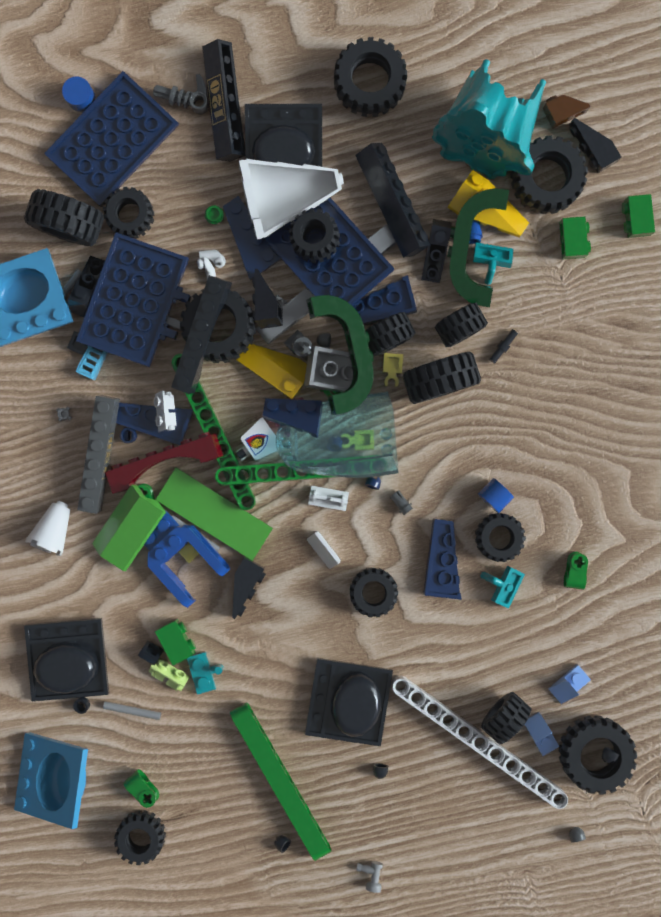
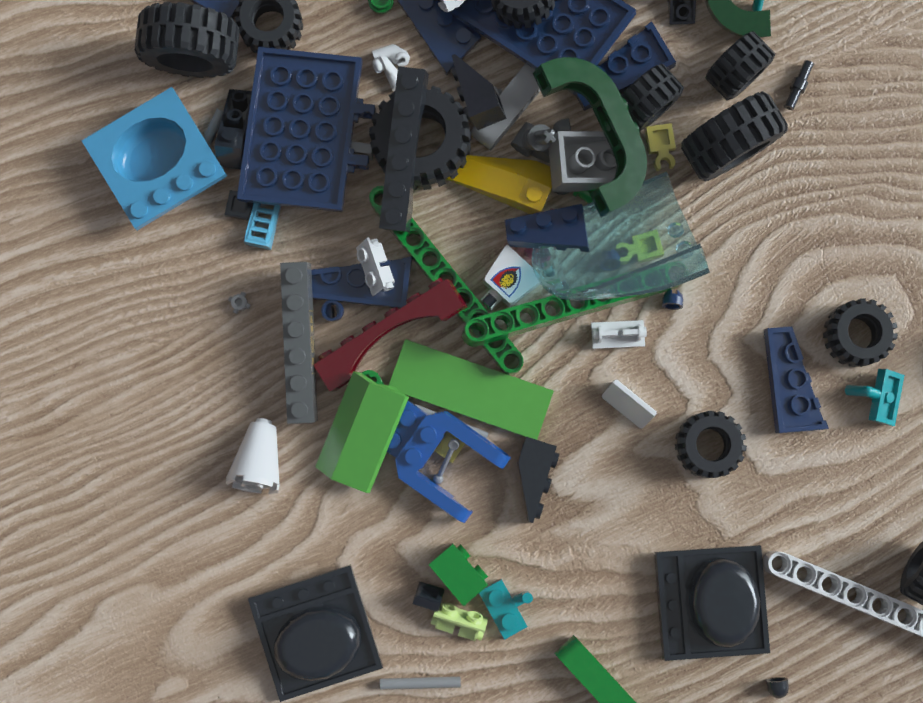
camera: 15 degrees left, 5 degrees down
(81, 705) = (348, 694): black hinge -> none
(191, 551) = (453, 445): none -> light grey hinge
(401, 502) = (716, 318): dark grey pin -> none
(496, 495) = (840, 279): blue piece -> none

